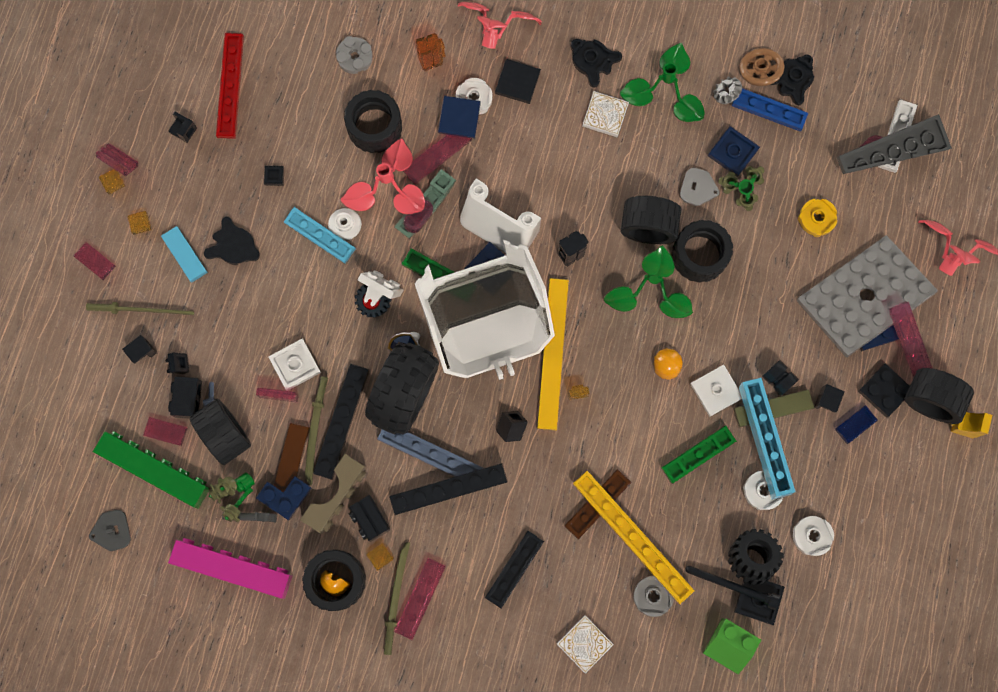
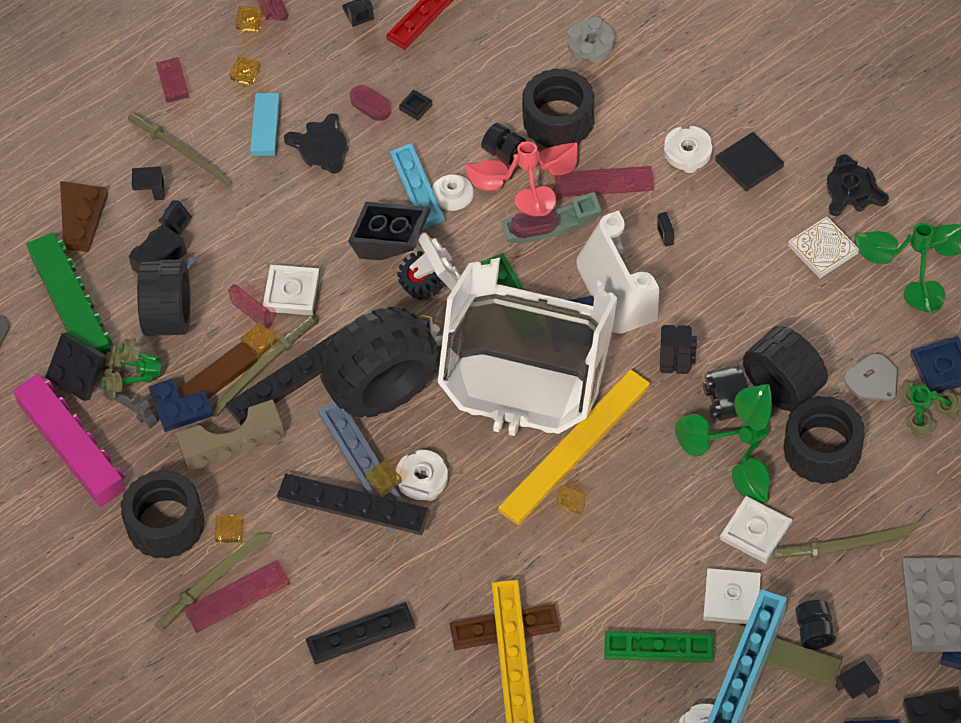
camera: 40 degrees right, 20 degrees down
(109, 401) = (80, 213): none -> reddish brown wing
(165, 431) = (111, 275): clear pink tile -> none
(196, 516) = (75, 366): none -> black plate
(242, 193) = (370, 102): none -> clear pink tile
(300, 414) = (259, 339): none -> clear yellow plate
(331, 283) = (387, 230): none -> black slope
(333, 585) = (156, 515): light orange hair -> none
(349, 166) = (501, 143): none -> black wheel
(369, 519) = (247, 481): black brick -> none
(430, 51) = (672, 76): clear orange brick -> none
(456, 460) = (383, 478): none -> clear yellow plate
(459, 117) = (654, 156): dark blue tile -> none
(468, 447) = (426, 488): none -> white plate
(490, 33) = (753, 98): coral plant -> none
(502, 165) = (665, 229): none -> black tile
(511, 426) = (471, 487): black panel -> none
(623, 257) = (722, 387): none -> black brick
(668, 363) = (696, 534): light orange hair -> none
(699, 336) = (756, 529): none -> white tile
(742, 327) = (814, 548): none -> olive sword

